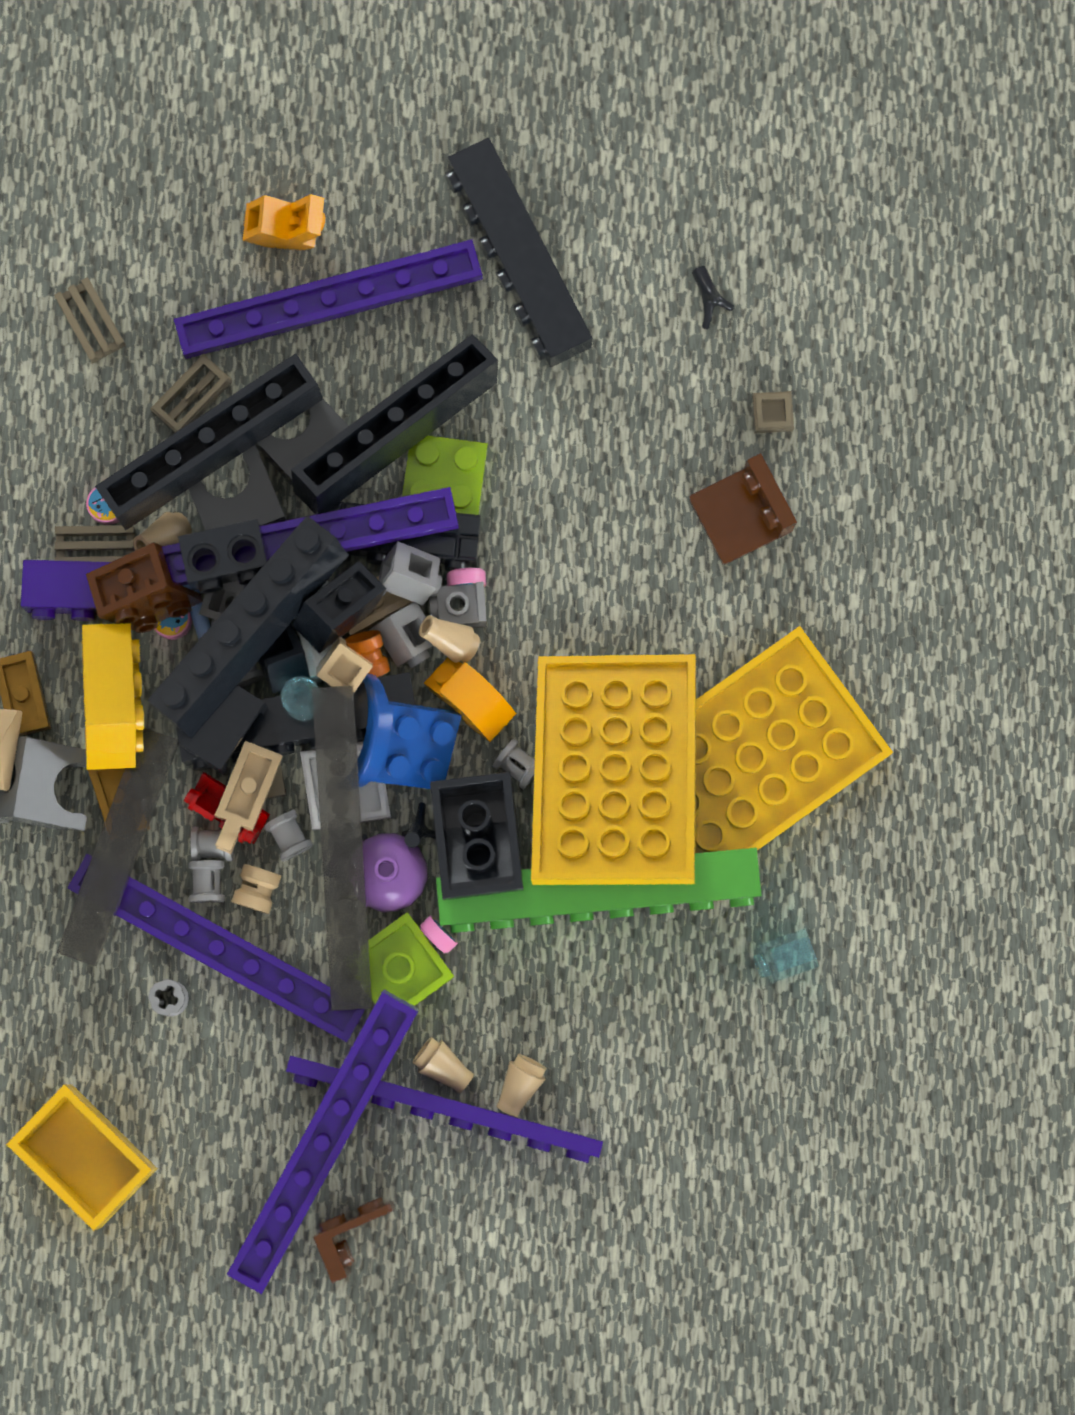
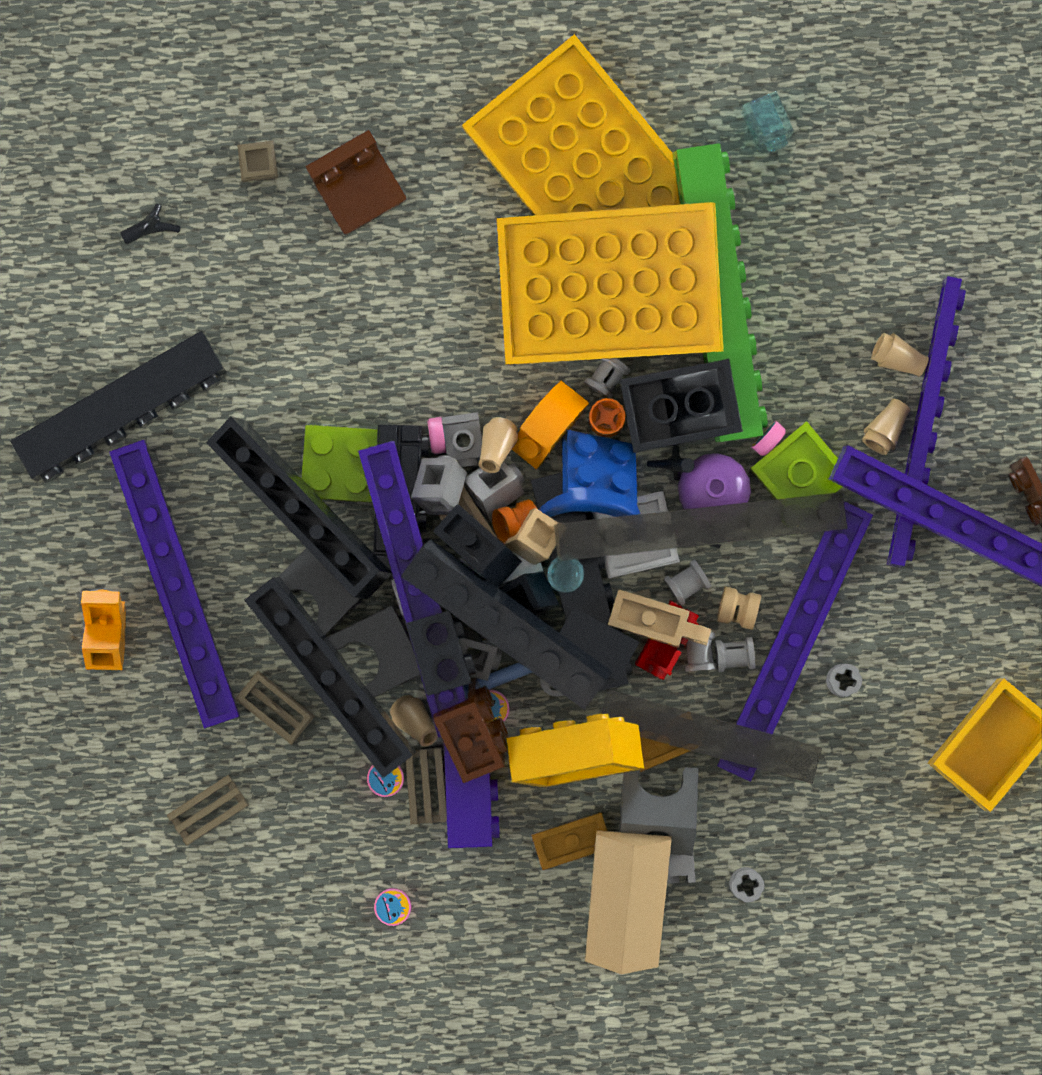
camera: 85 degrees left, 5 degrees up
(472, 754) = (607, 412): none -> orange wheel

